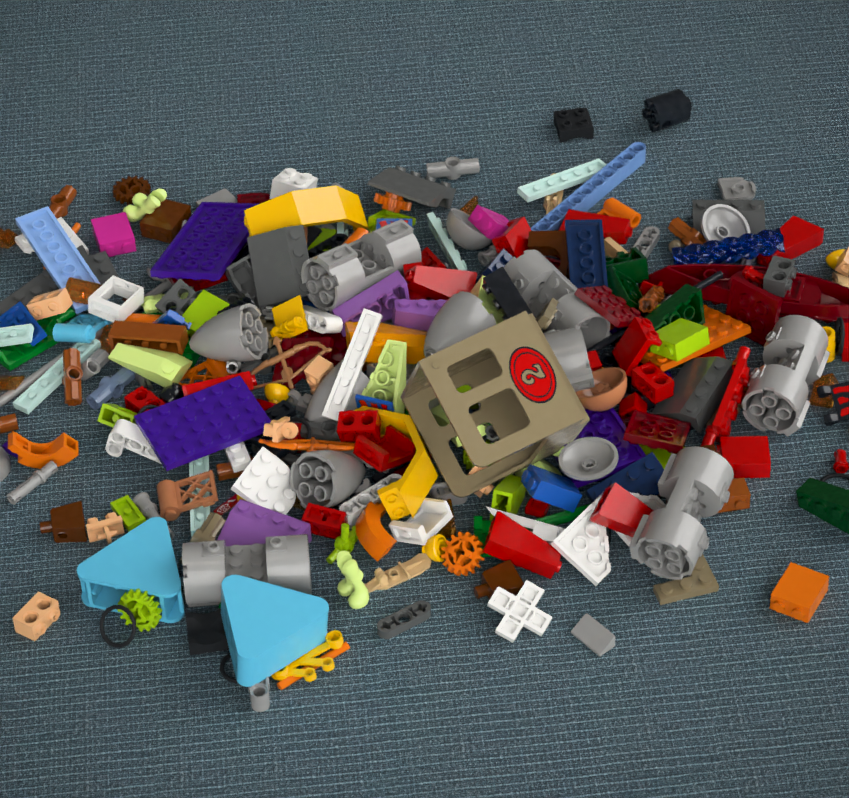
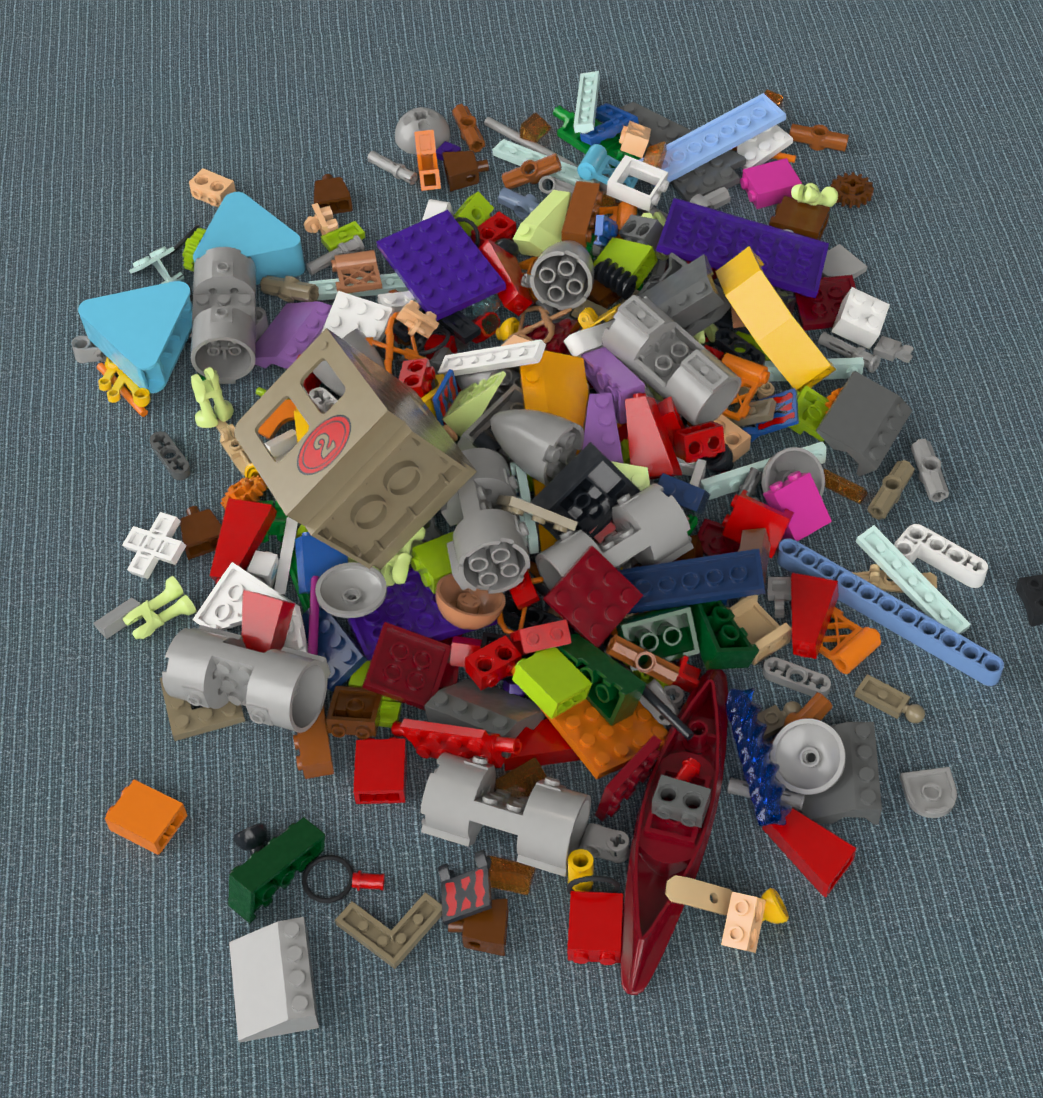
camera: 90 degrees right, 10 degrees up
(47, 427) = (462, 169): none -> reddish brown torso
(129, 271) = (712, 200): none -> light grey piece
(145, 649) = (155, 260): none -> light aqua plate
(324, 179) = (891, 349): none -> light grey plate
(470, 187) = (891, 489): none -> dark tan piece
(471, 256) = (751, 482): none -> dark grey pin
(535, 165) = (942, 554): none -> white beam
(580, 594) = (153, 621): none -> yellowish green piece
(601, 488) = (313, 618): none -> magenta bar
(663, 201) = (888, 699): none -> dark tan plate
(811, 526) = (251, 838): none -> black brick

